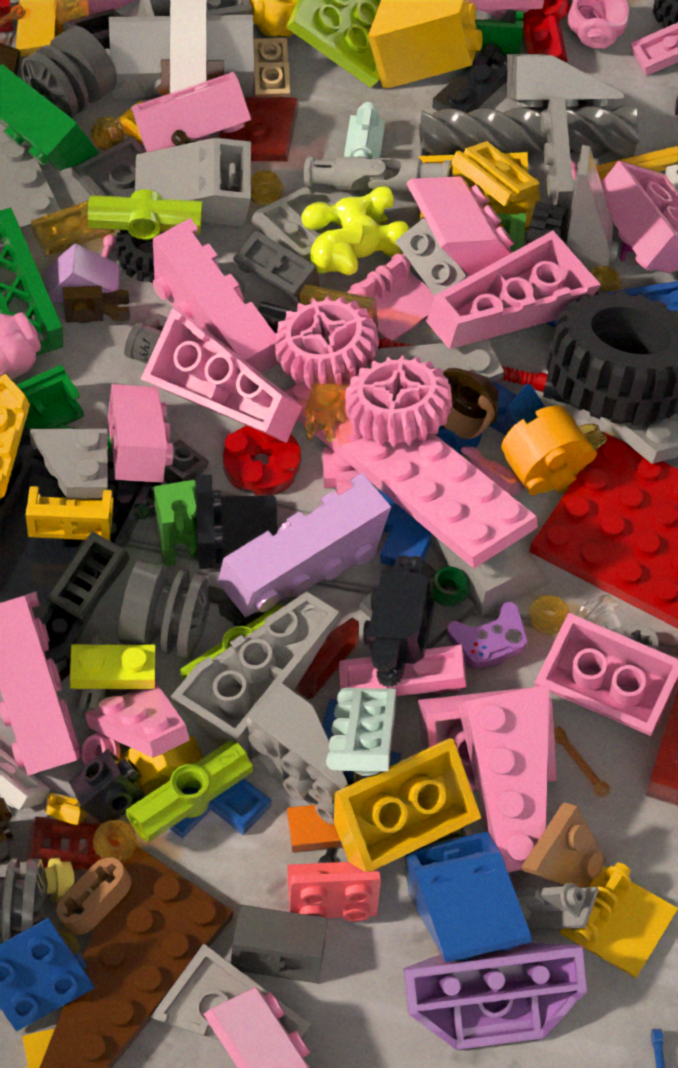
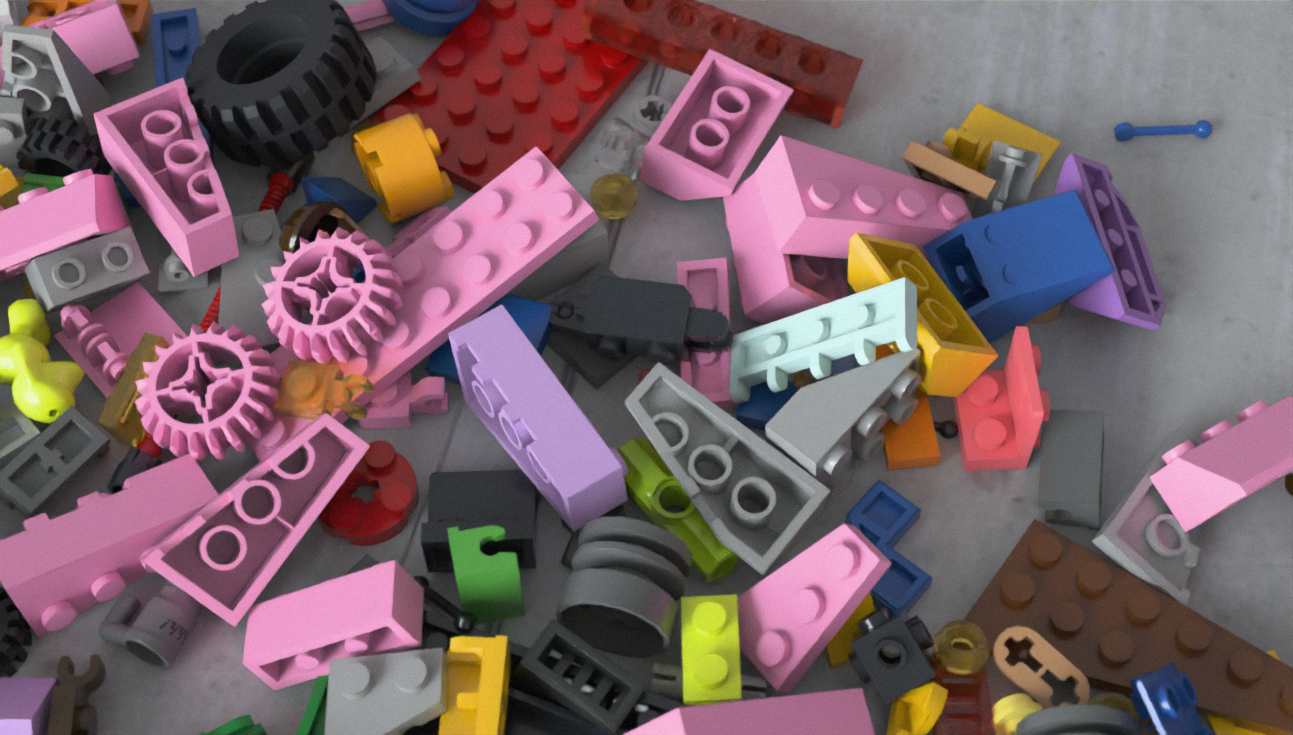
camera: 85 degrees left, 0 degrees up
(96, 745) = (839, 677): bright pink plate -> none
(170, 806) = (912, 579): lime piece -> none
(451, 577) = (581, 269): dark green plate -> none
(493, 641) = (653, 240): medium lavender piece -> none

